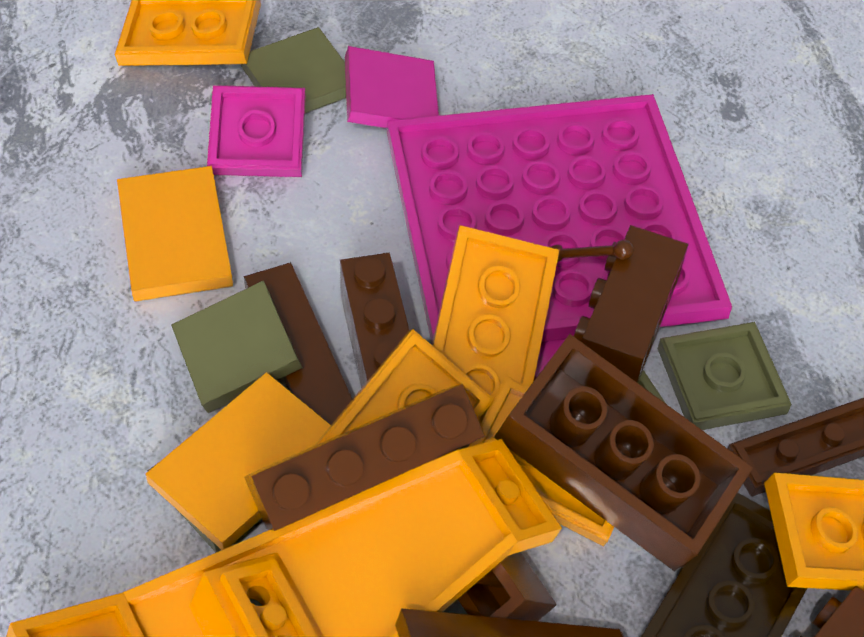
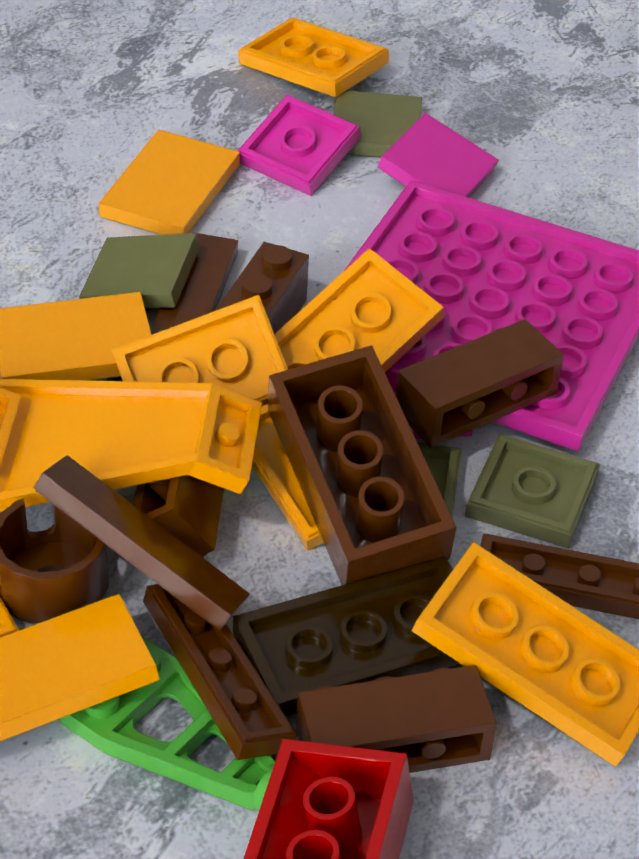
camera: 35 degrees right, 10 degrees down
(363, 457) = (141, 354): reddish brown brick -> none
(622, 250) = (493, 327): reddish brown hinge -> none

